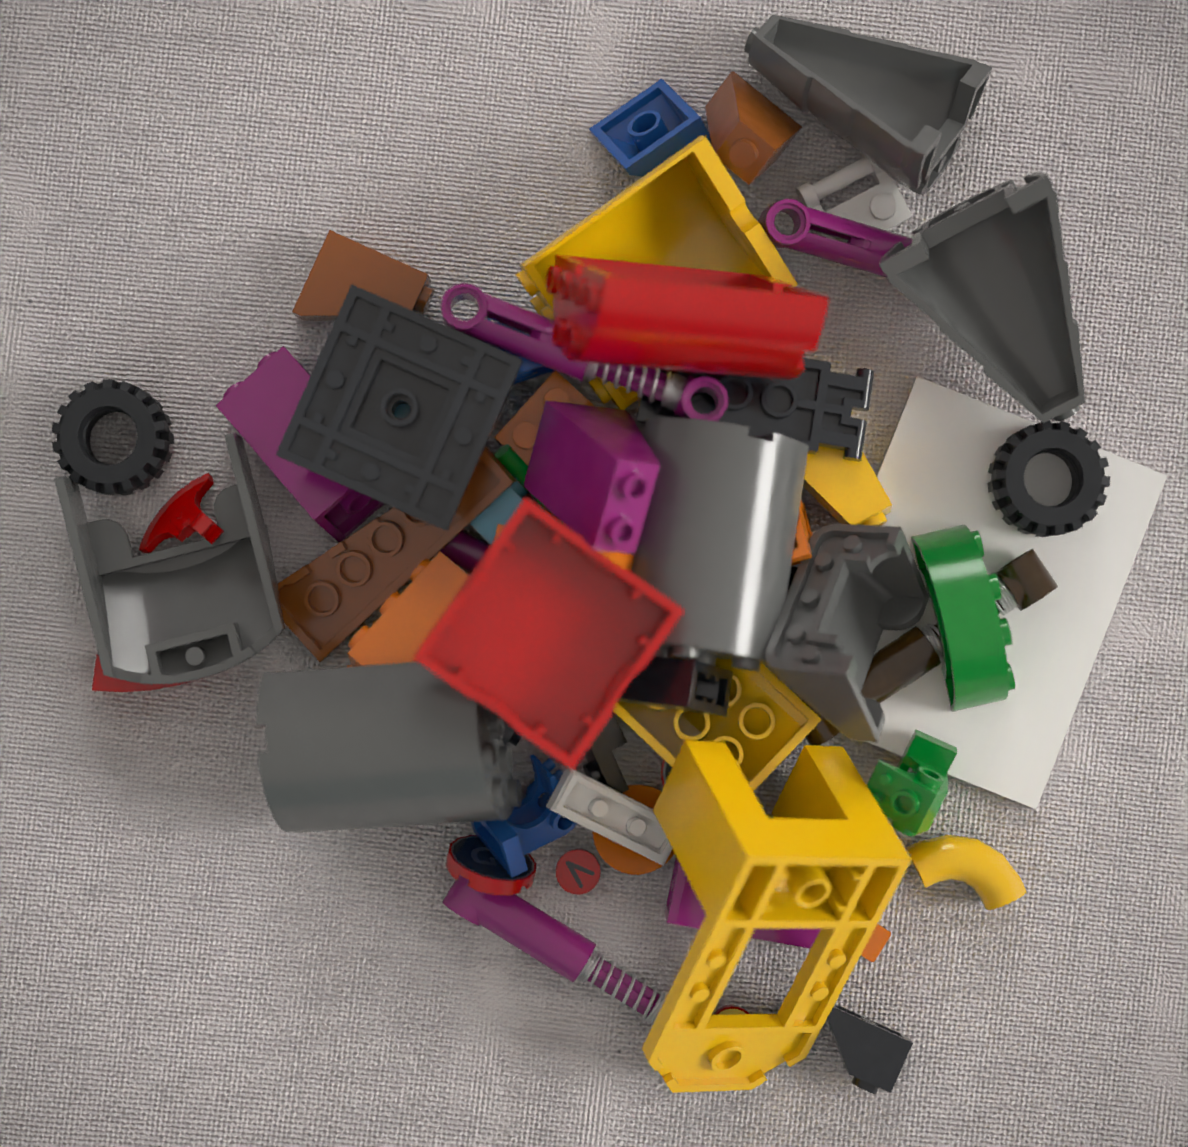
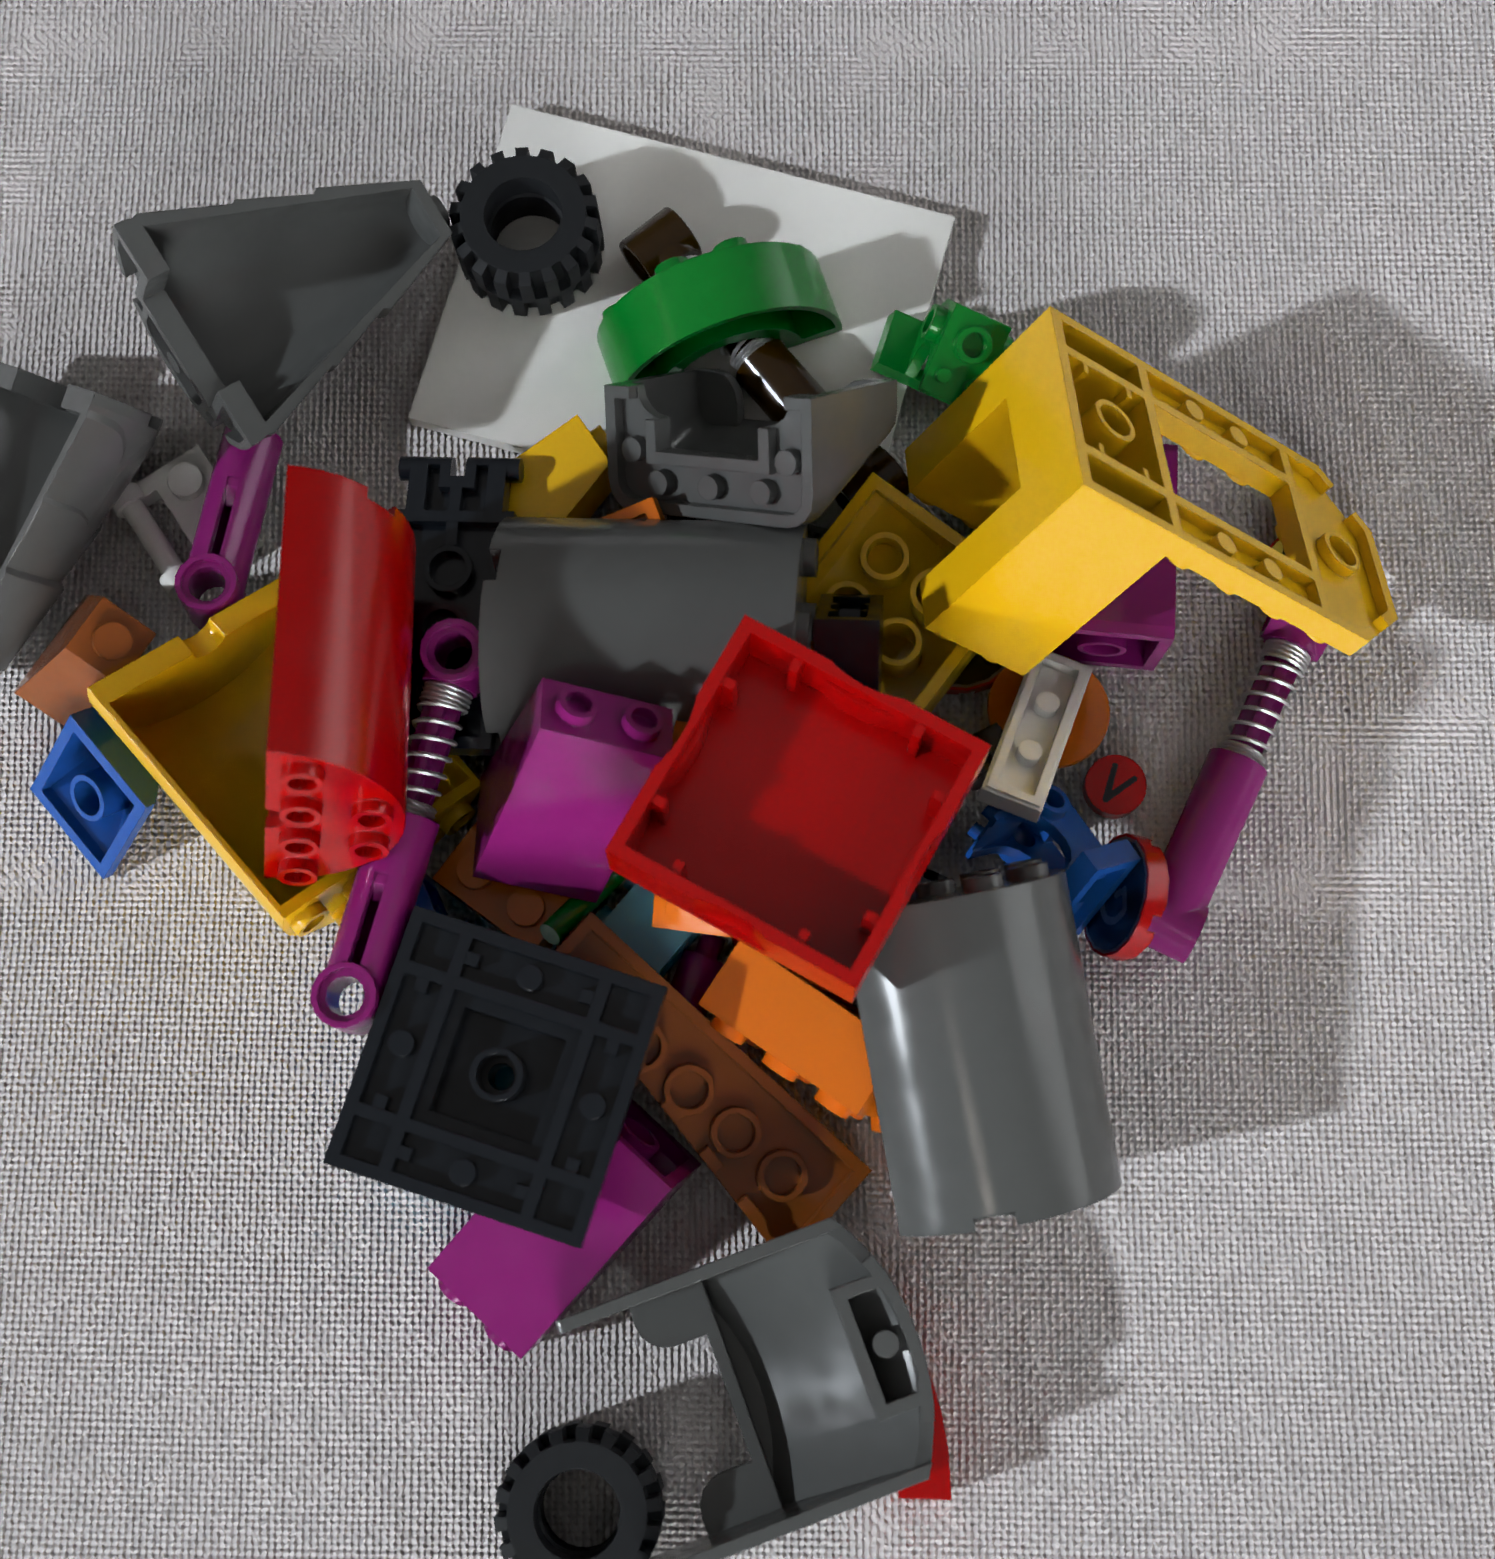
camera: 85 degrees left, 10 degrees down
(182, 517) = (687, 1393): red piece -> none
(348, 263) = (320, 1197): dark orange slope -> none
(868, 1049) = (1298, 383): black slope -> none
(969, 862) = (1042, 270): yellow cylinder -> none

